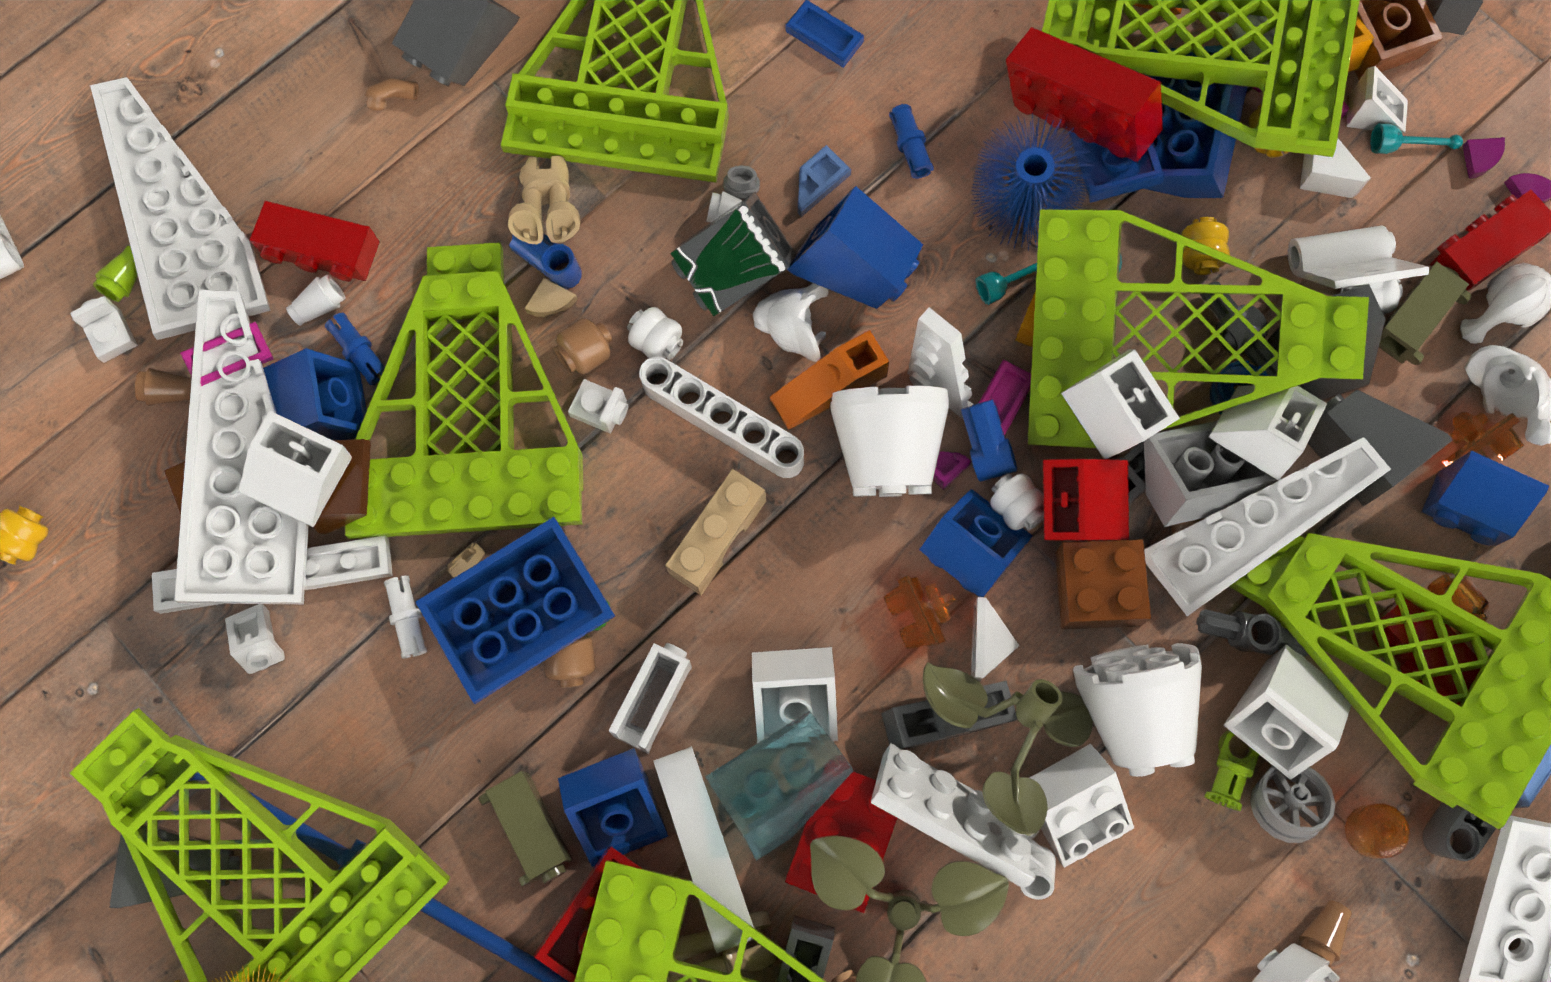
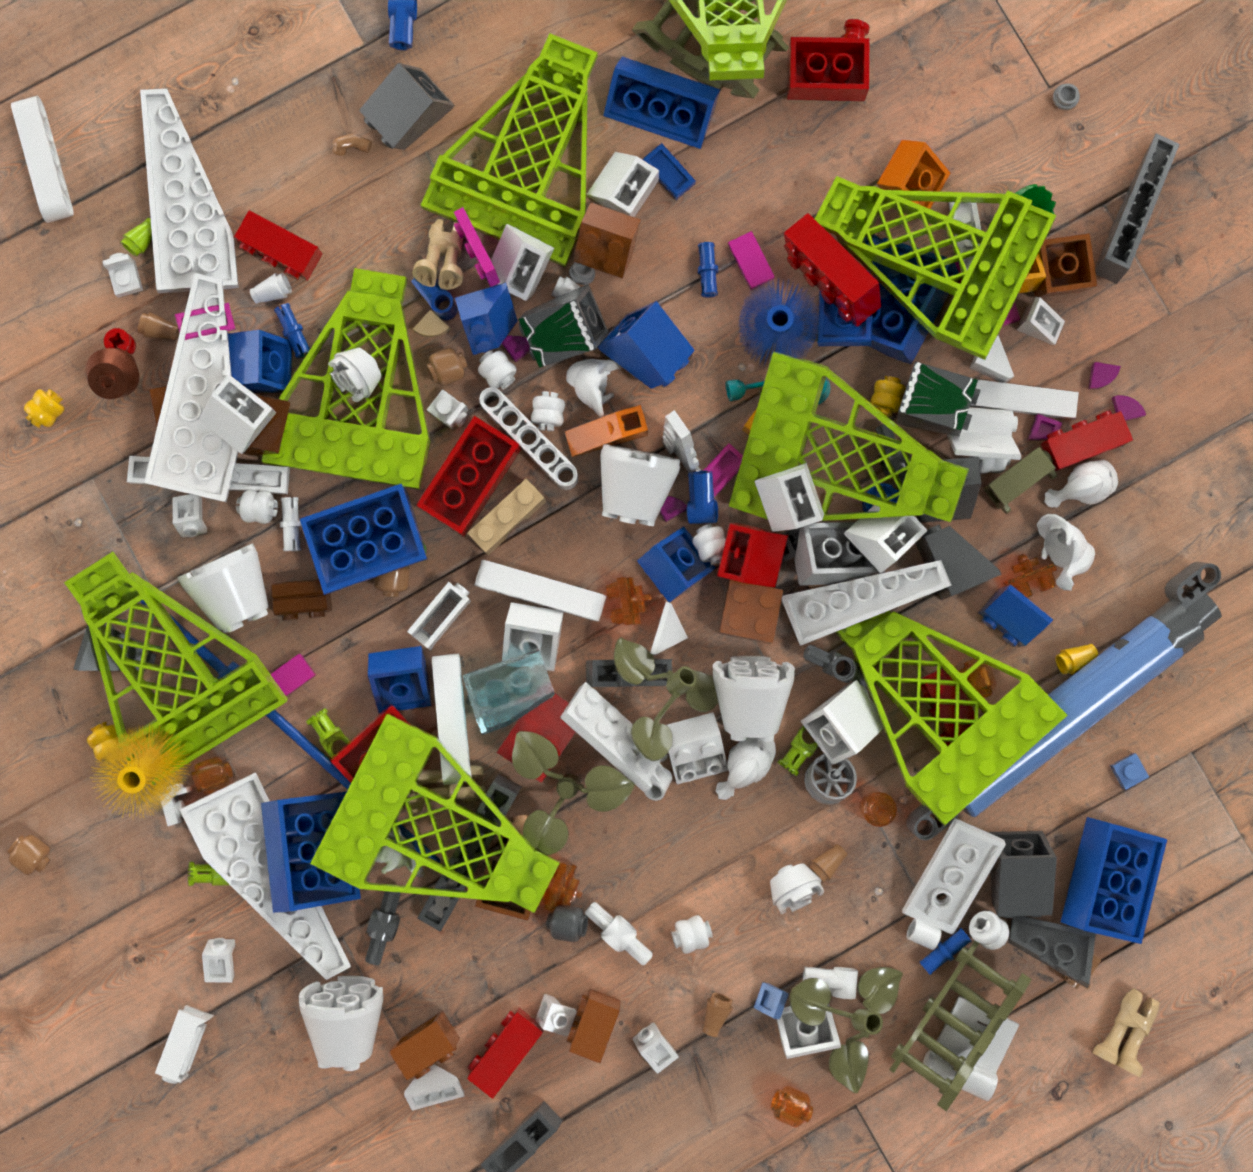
camera: 10 degrees right, 10 degrees up
(108, 462) = (112, 373): none -> copper cone
(119, 430) = (126, 343): none -> red wheel
(328, 728) = (229, 589): none -> white cone
(350, 602) = (257, 506): none -> white piece
(440, 721) = (300, 598): none -> reddish brown brick
(451, 838) = (293, 674): none -> dark pink tile
(455, 378) = (355, 372): none -> white cone
(466, 559) = (337, 496): tan tile -> none
(519, 912) = (327, 731): none -> lime connector
(528, 828) = (343, 680): olive brick -> none
(589, 173) = (475, 248): none -> dark pink wing
(624, 264) = (487, 317): none -> blue slope
(649, 487) = (469, 476): none -> red brick
(652, 185) = (520, 261): none -> white slope
(674, 300) = (516, 346): none -> magenta tile
(739, 373) = (548, 411): none -> white piece
(765, 128) = (606, 240): none -> dark orange brick
(771, 59) = (624, 184): none -> white slope
(789, 626) = (540, 590): none -> white beam
(819, 178) = (637, 281): medium blue tile -> none
(965, 117) = (751, 260): none -> dark pink tile
(1163, 811) = (747, 764): none -> white piece
(1282, 228) = (937, 400): none -> slope
(1388, 139) = (1040, 347): teal hinge -> none
(1390, 208) = (1027, 399): none -> white tile
(1425, 240) = (1043, 426): none -> magenta tile

